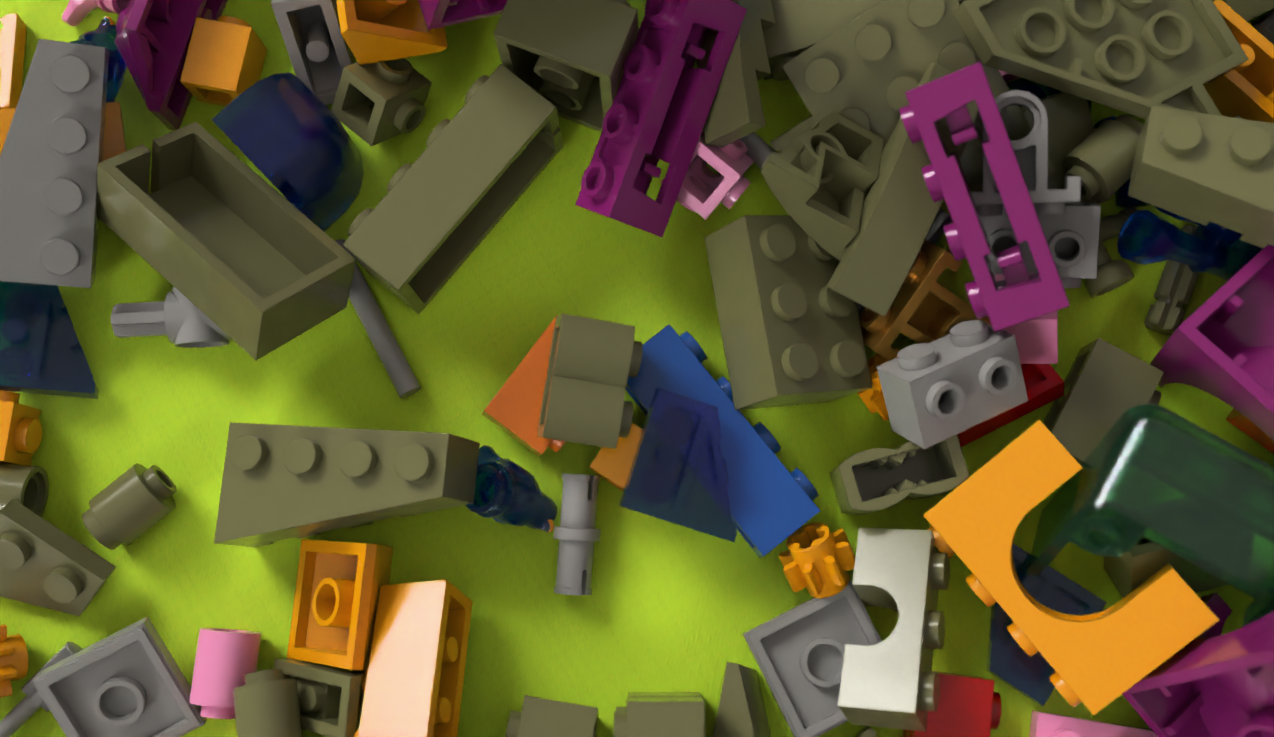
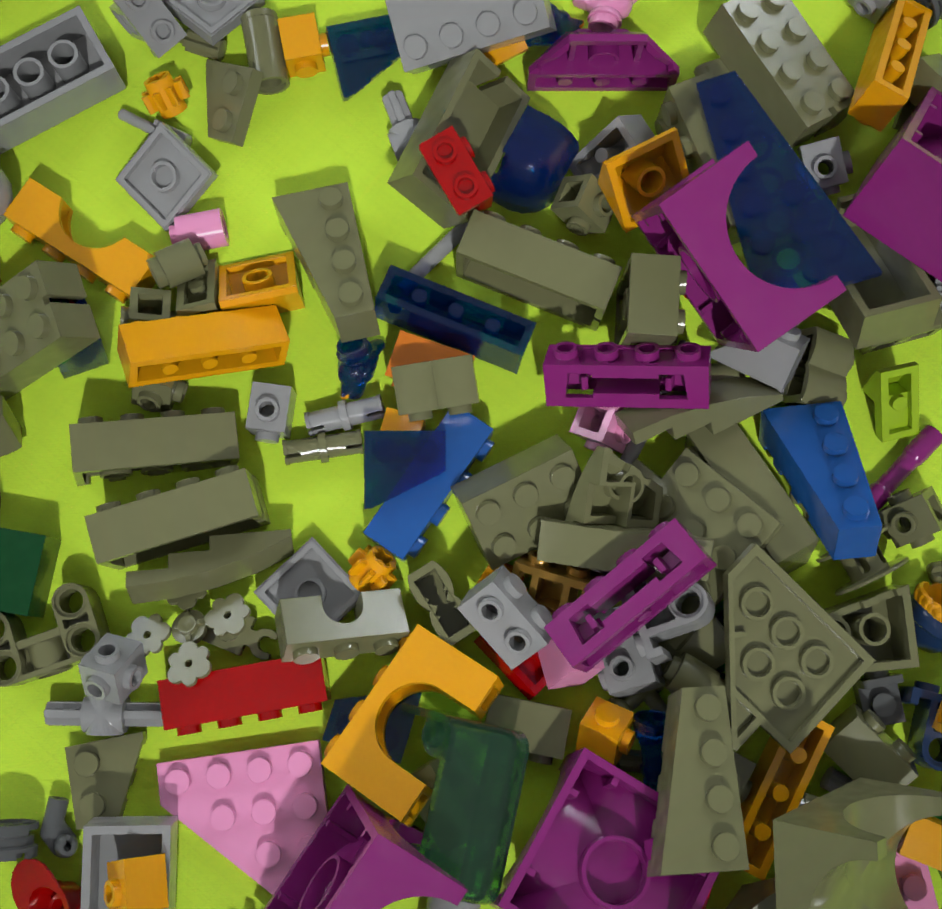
camera: 65 degrees right, 0 degrees up
(130, 506) = (281, 142): olive brick -> none
(222, 60) = (578, 101): light orange brick -> none
(280, 247) = (456, 173): none -> red bracket
(489, 329) = (453, 319): none -> clear blue brick
(538, 642) = (270, 412): none -> light grey brick
(613, 580) = (322, 447): none -> olive pin
(1142, 302) = (606, 730): none -> light orange brick

